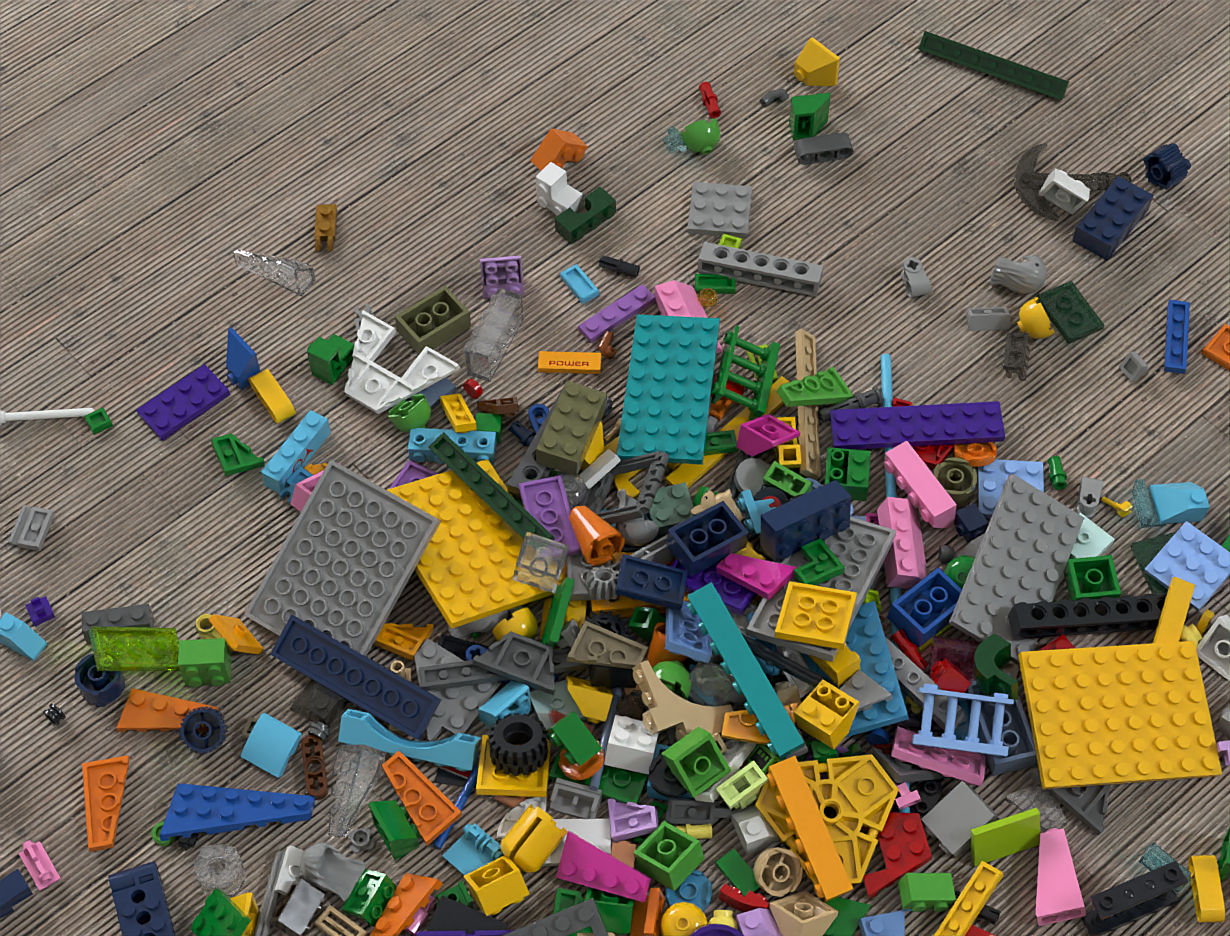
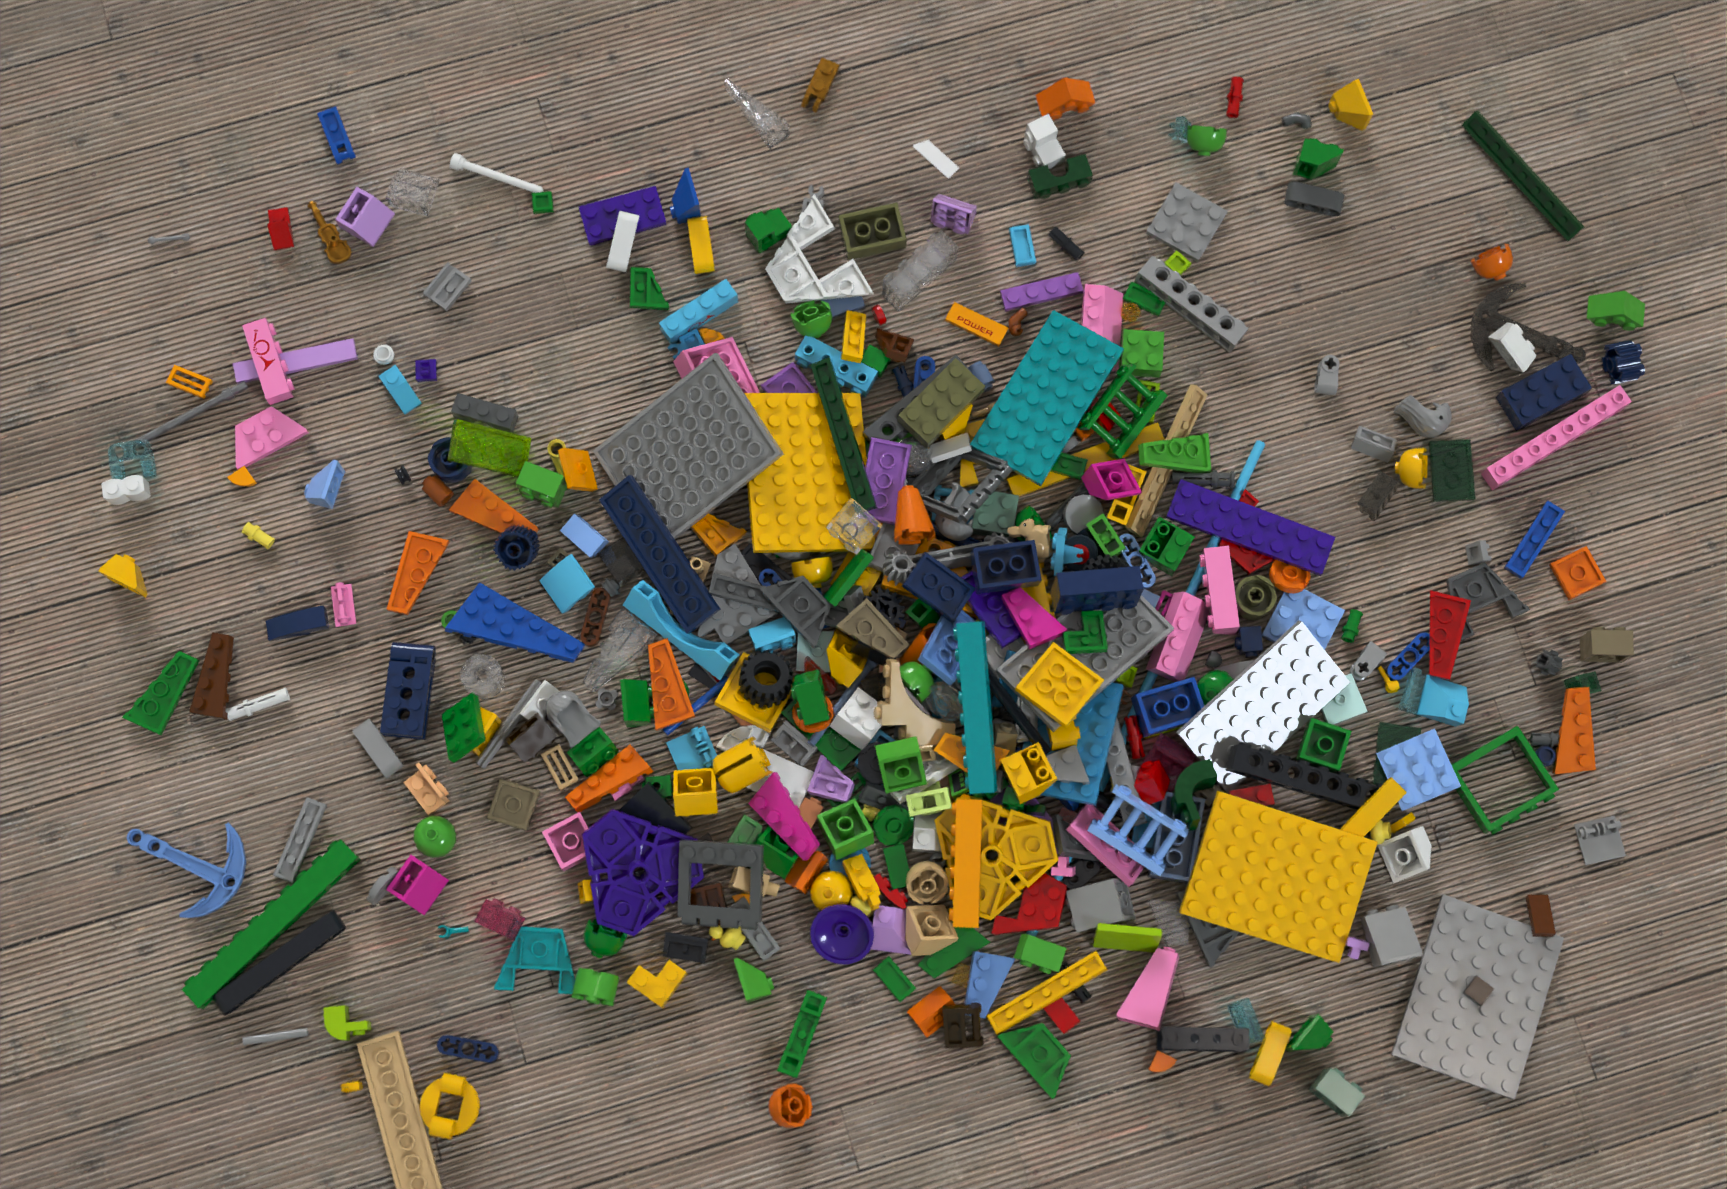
camera: 20 degrees right, 20 degrees up
(97, 714) = (437, 490): none -> dark orange brick
(193, 419) = (622, 241): none -> white beam
(269, 693) = (584, 535): none -> light blue hinge
(463, 245) = (936, 157): none -> white sticker
(711, 897) = (862, 880): none -> yellow hinge
(716, 832) = (893, 825): none -> green tile
(739, 313) = (1144, 351): none -> bright green brick
(1009, 136) = (1494, 262): none -> orange cylinder
(1122, 469) = (1395, 663): none -> blue beam
(1134, 128) = (1616, 308): none -> bright green brick
(1144, 249) = (1556, 437): none -> bright pink brick
(1144, 435) = (1446, 629): none -> red wing
(1151, 398) = (1483, 589): none -> dark grey wing

